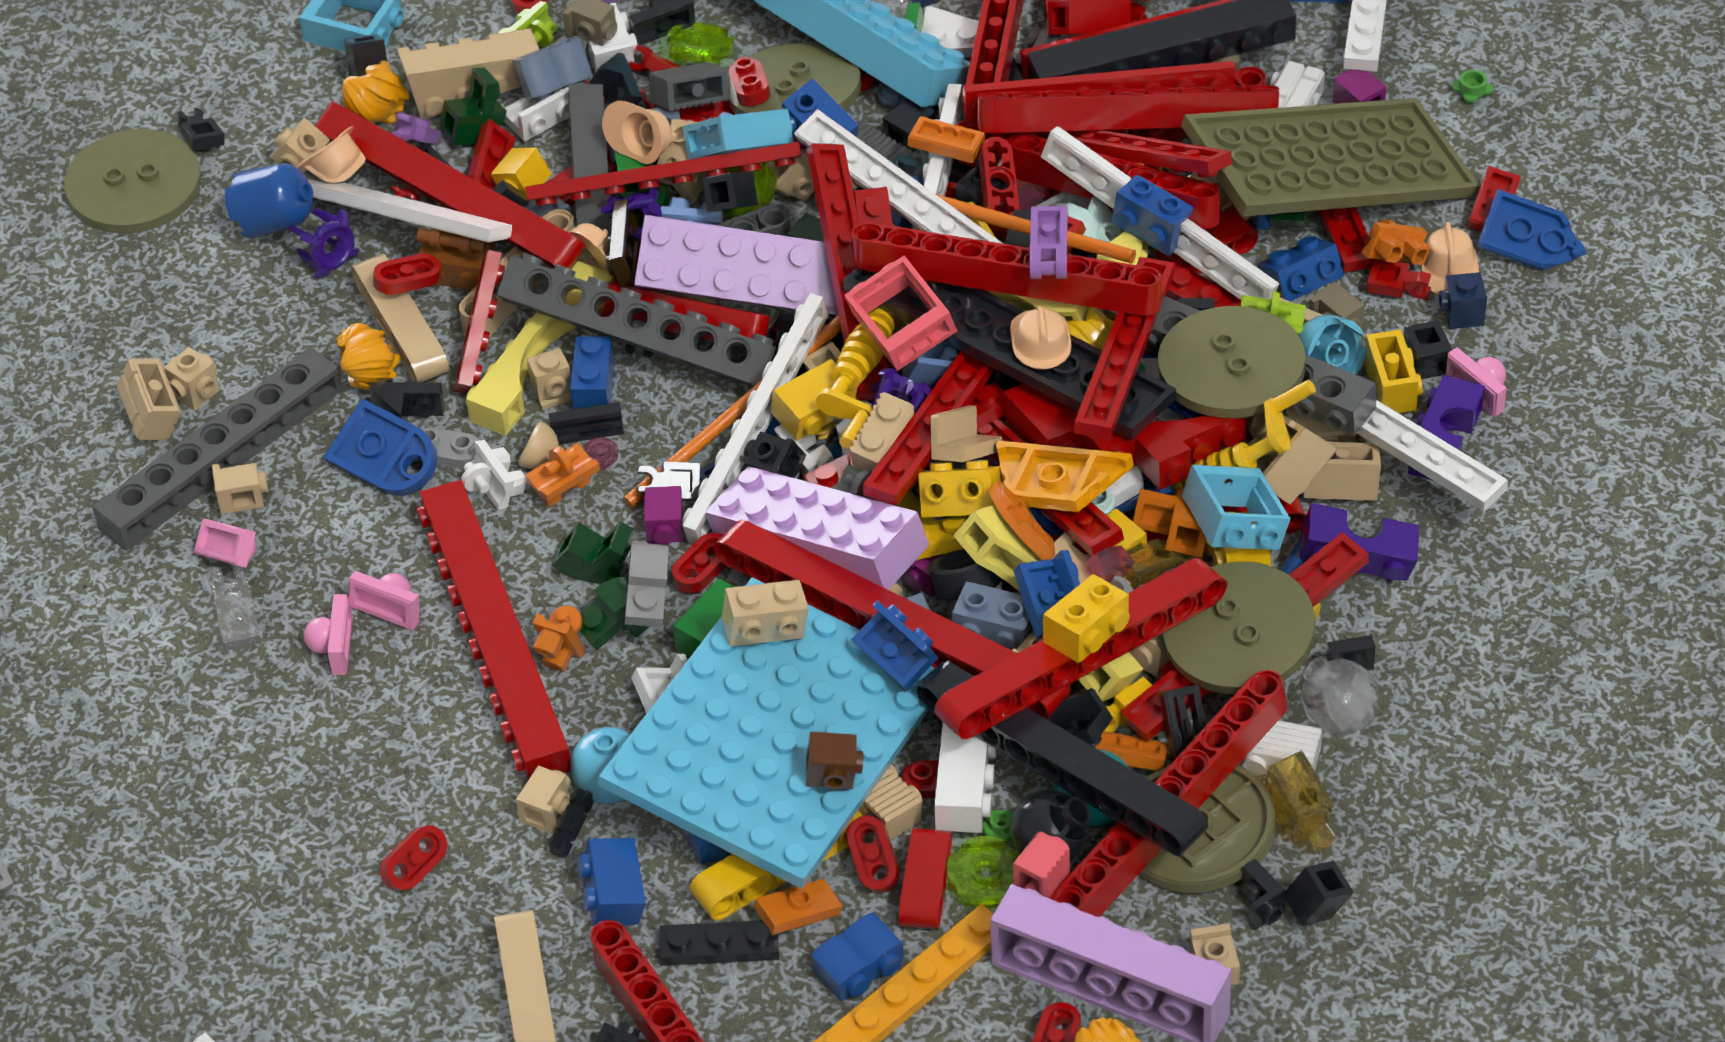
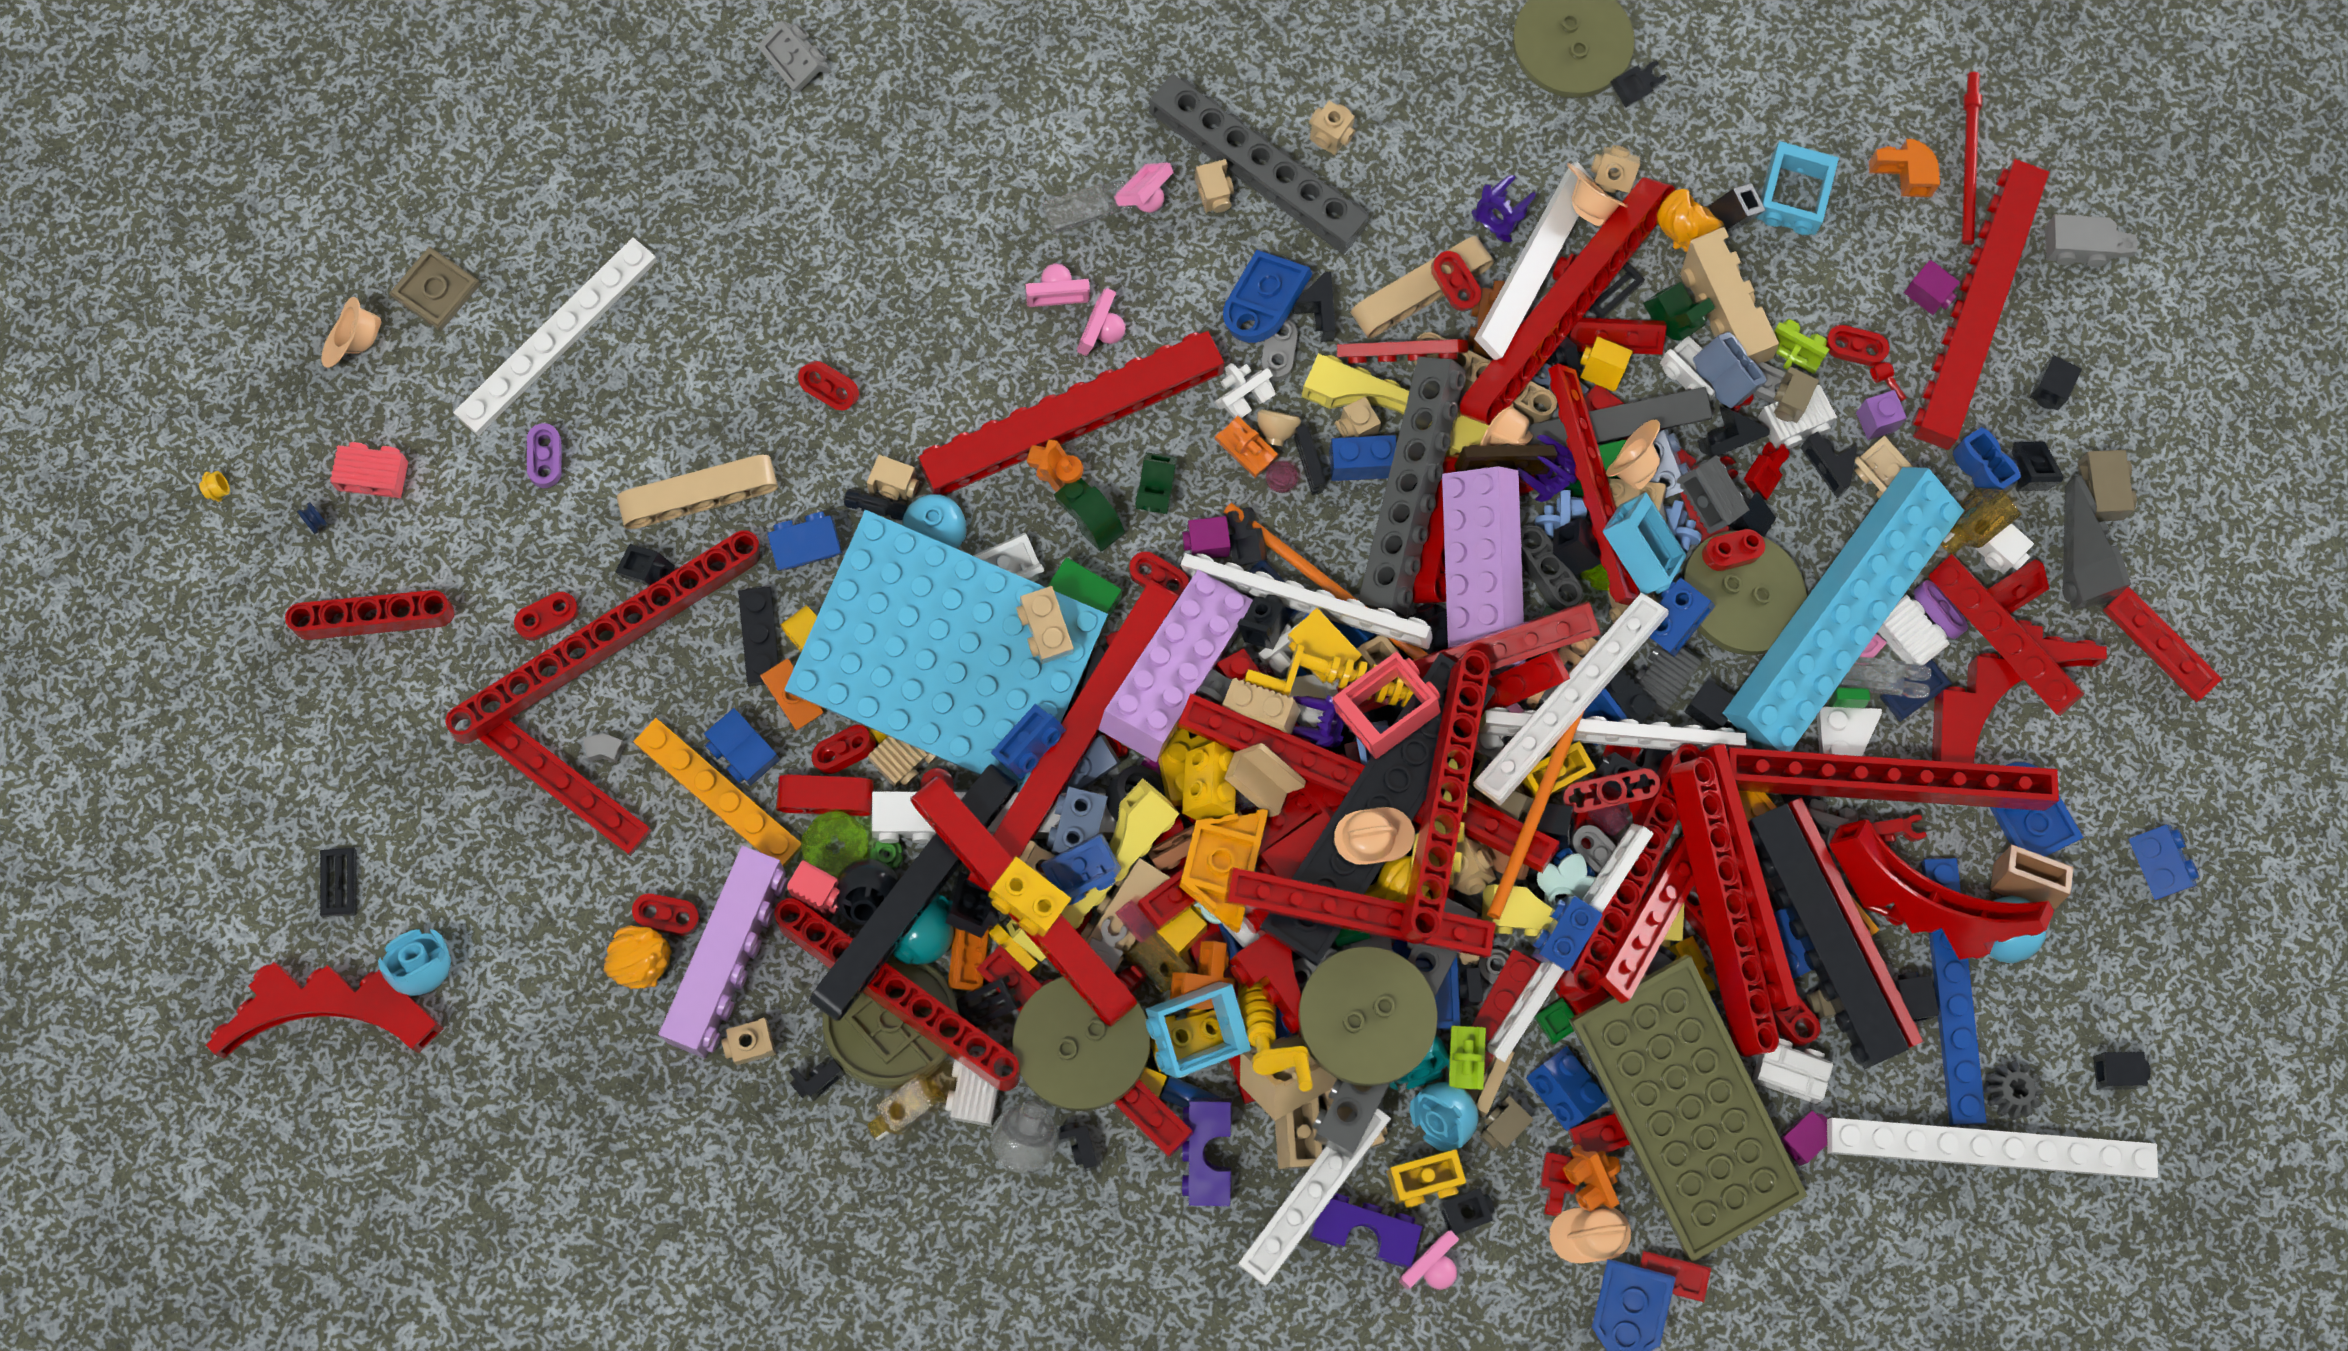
camera: 75 degrees right, 25 degrees up
(148, 399) = (1301, 96): tan brick -> none
(269, 199) = (1537, 150): blue cylinder -> none
(366, 356) = (1363, 264): light orange hair -> none
(415, 128) = (1653, 264): medium lavender plate -> none
(646, 584) = (1110, 526): light grey arch -> none
(700, 44) = (1783, 506): clear neon green plate -> none
(832, 760) = (893, 699): reddish brown brick -> none
(946, 139) = (1652, 734): orange plate -> none
(1021, 521) = (1158, 835): orange tile -> none
(1048, 242) = (1460, 828): medium lavender plate -> none
(1318, 893) = (811, 1126): black brick -> none
(1463, 300) = (1530, 1245): dark blue brick -> none
(1472, 85) = (1837, 1243): bright green plate -> none

